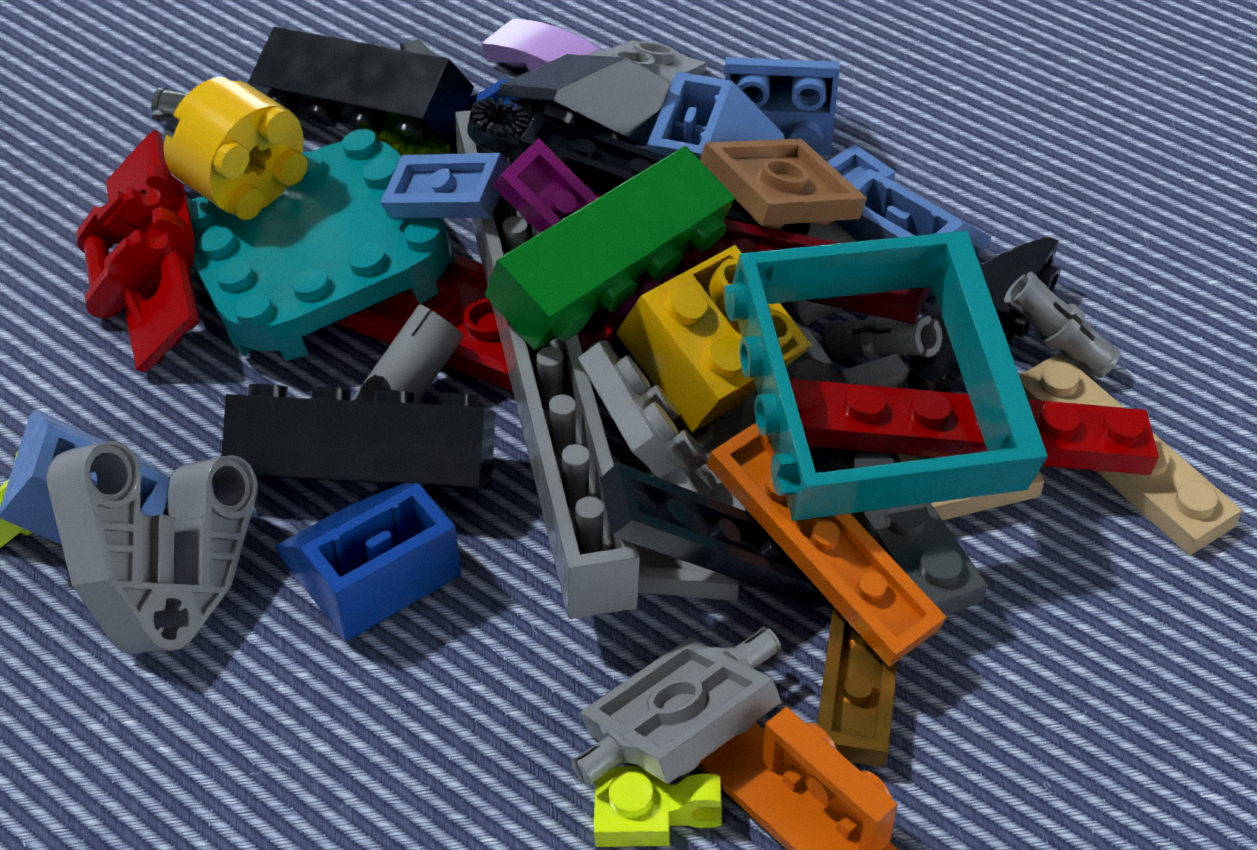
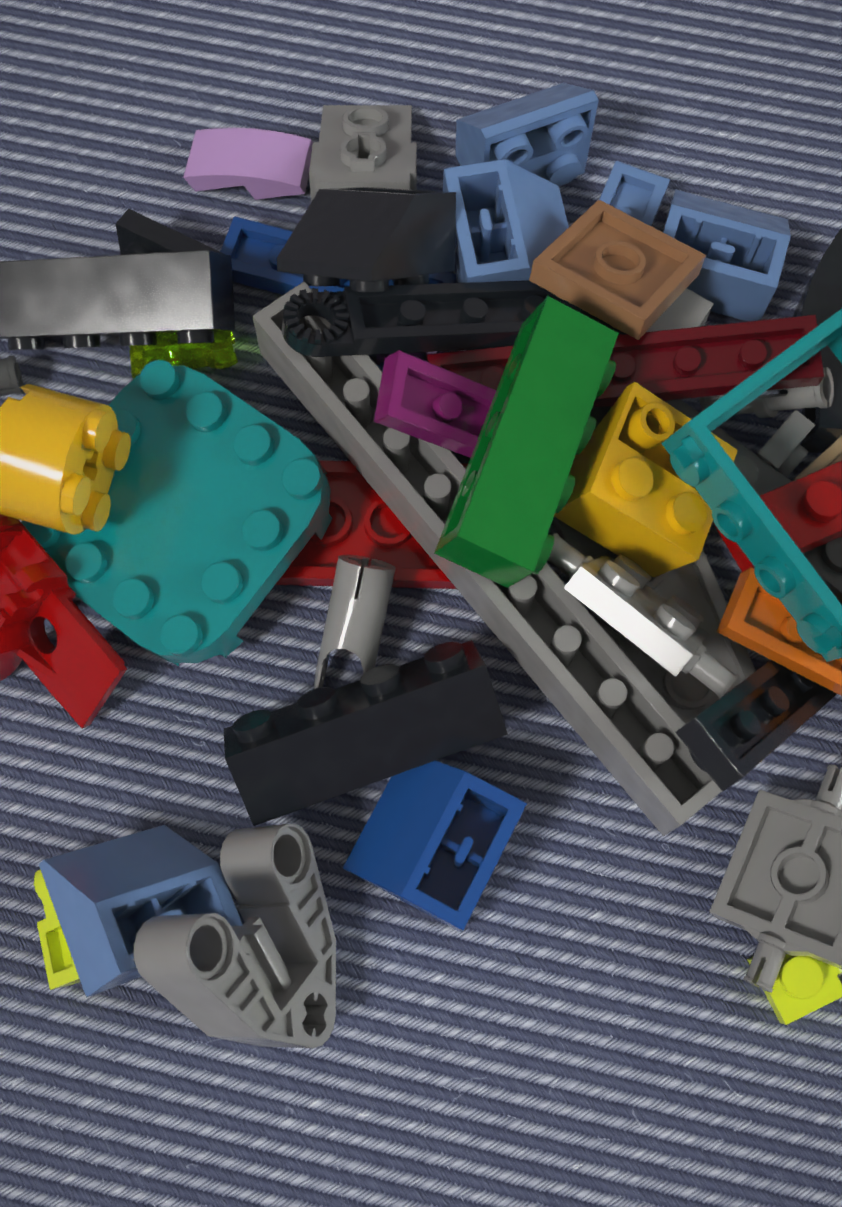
camera: 25 degrees left, 25 degrees up
(444, 186) = (308, 423): medium blue plate -> none

